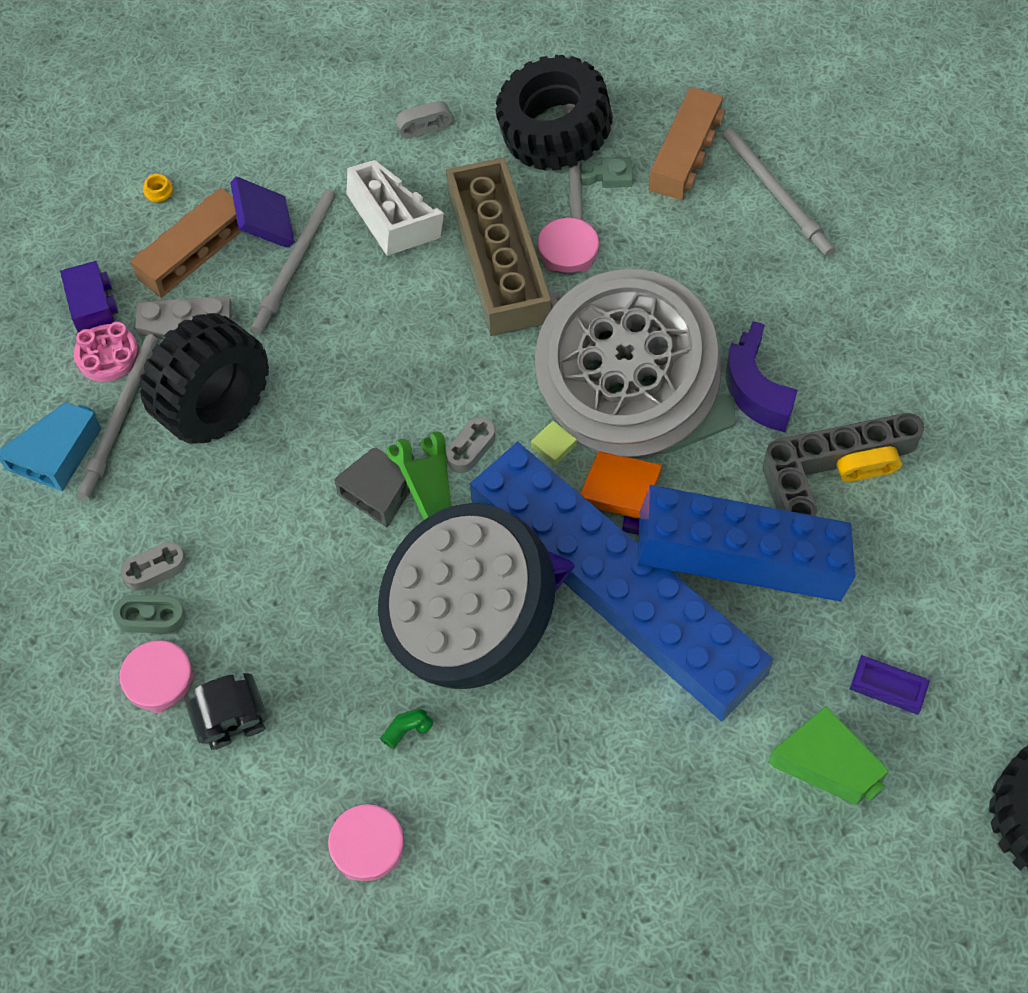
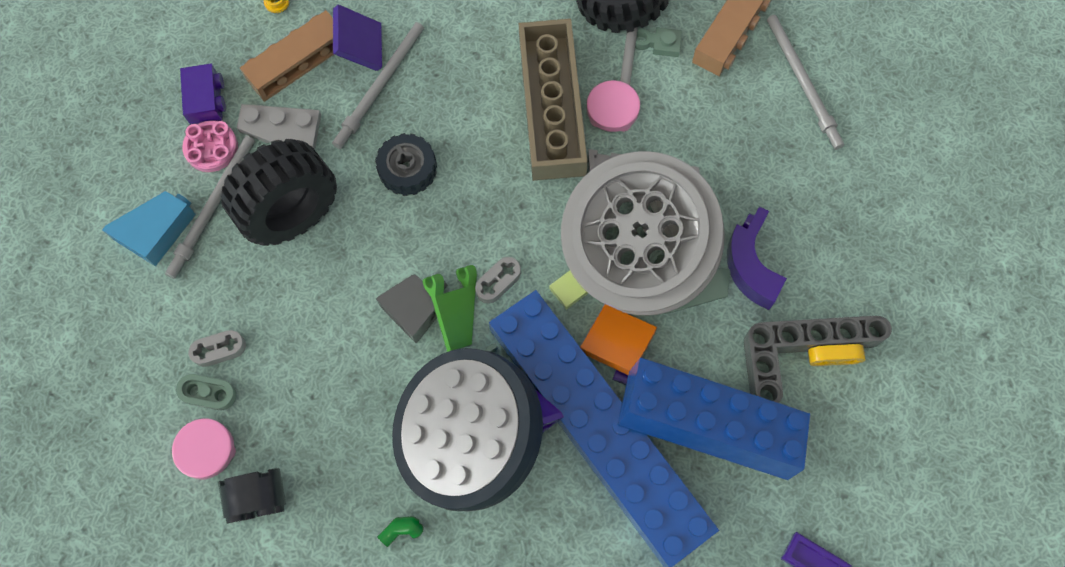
camera: 10 degrees right, 10 degrees up
(341, 353) = (399, 177): none -> black wheel
(390, 210) = (466, 51): white wedge -> none

